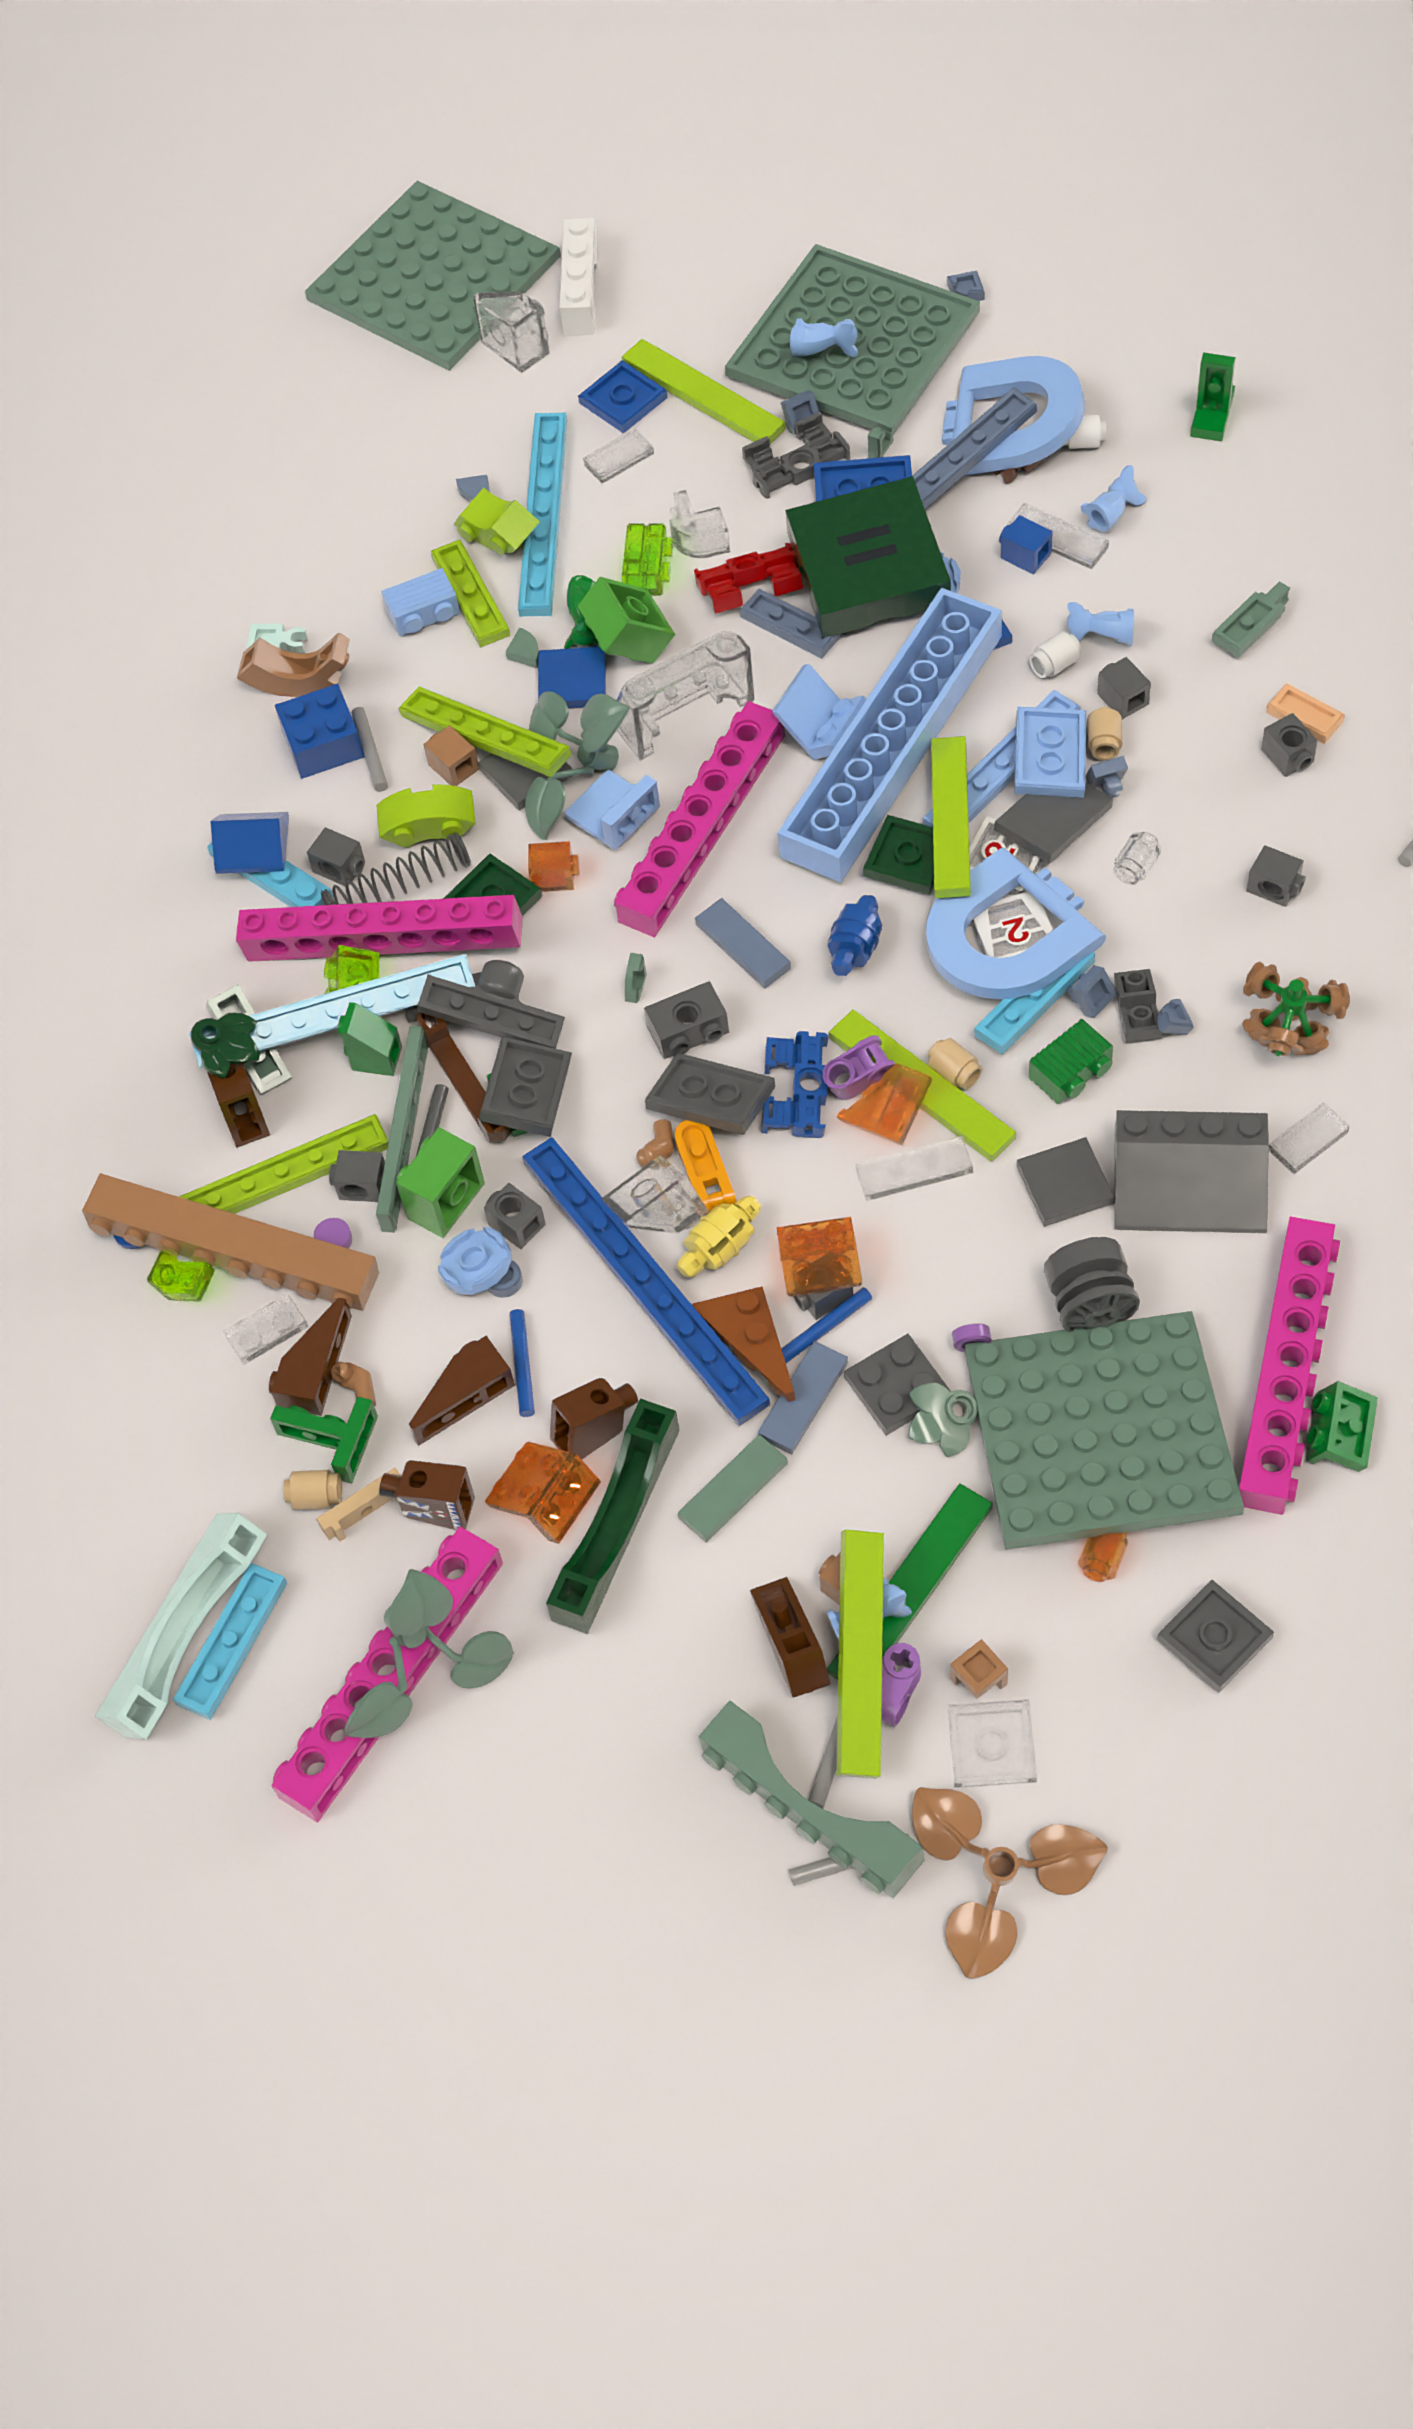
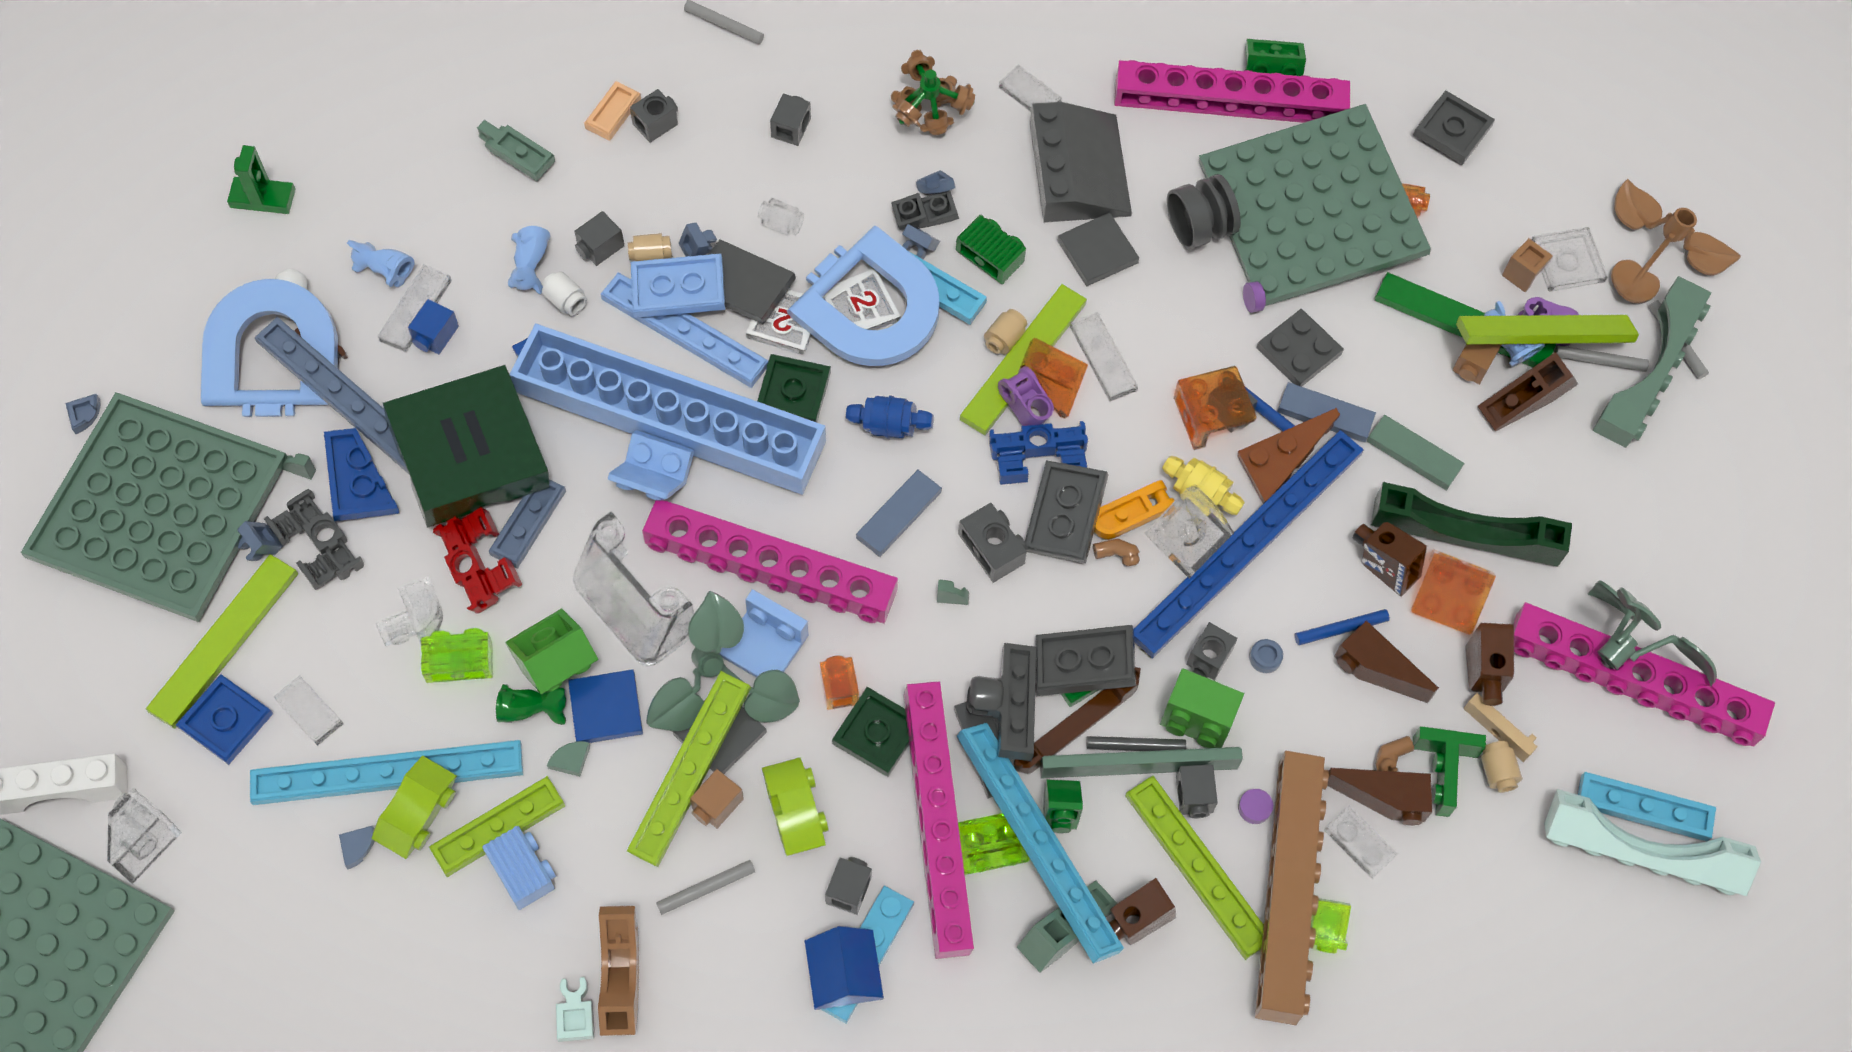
camera: 110 degrees left, 5 degrees up
(229, 1045) = (1107, 913): dark green plate -> none
(319, 731) = (696, 934): blue brick -> none
(459, 849) = (822, 774): dark grey piece -> none
(475, 1261) = (1262, 675): light blue tile -> none
(816, 337) = (172, 526): light blue animal -> none
(936, 1418) = (1324, 310): sand green plate -> none
(950, 817) = (760, 352): lime tile -> none

